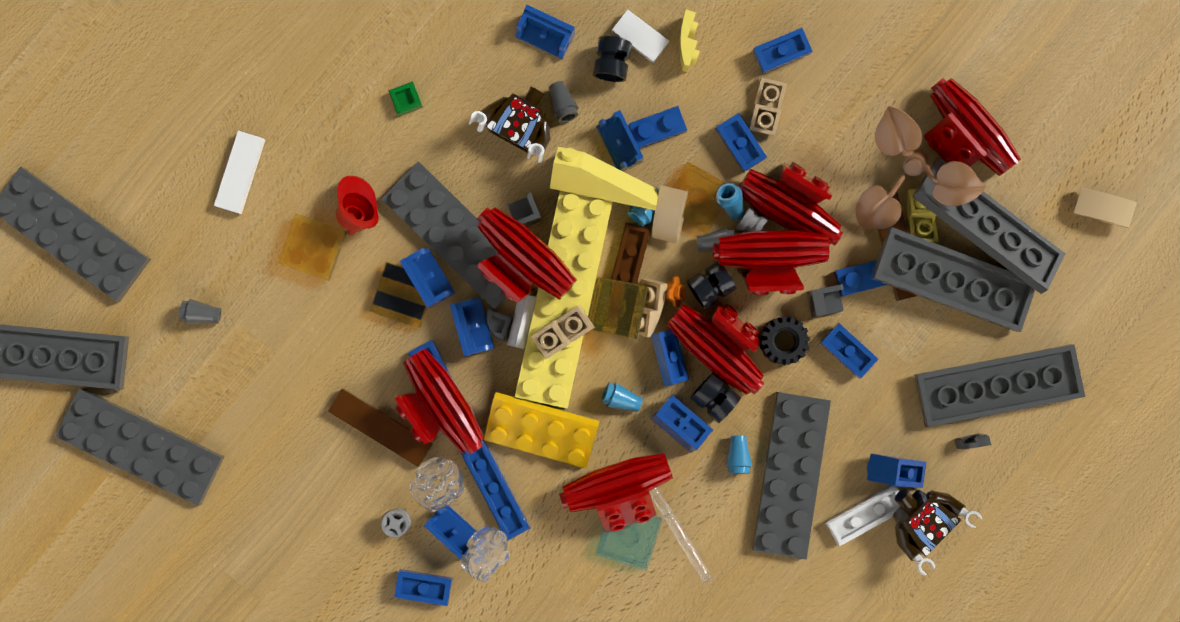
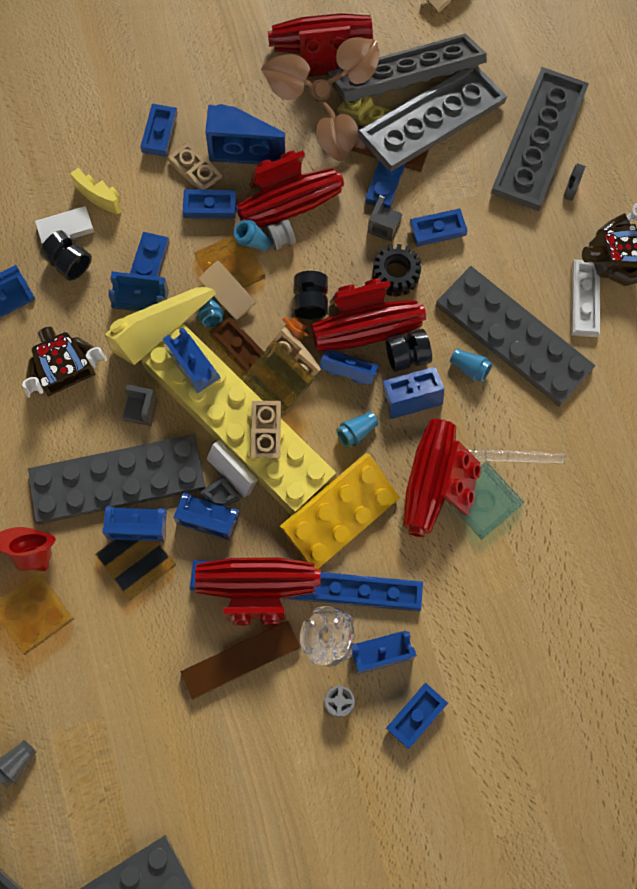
camera: 65 degrees left, 15 degrees down
(485, 553) = (421, 630): clear plate -> none
(521, 259) = (176, 420): red plate -> none
(562, 103) = (72, 318): dark grey cone -> none
(580, 233) = (191, 360): none -> blue hinge
(706, 241) = (278, 269): dark grey cone -> none
(772, 257) = (320, 230): red plate -> none
(815, 124) = (240, 137): none -> blue slope
(896, 471) = (561, 251): blue slope -> none

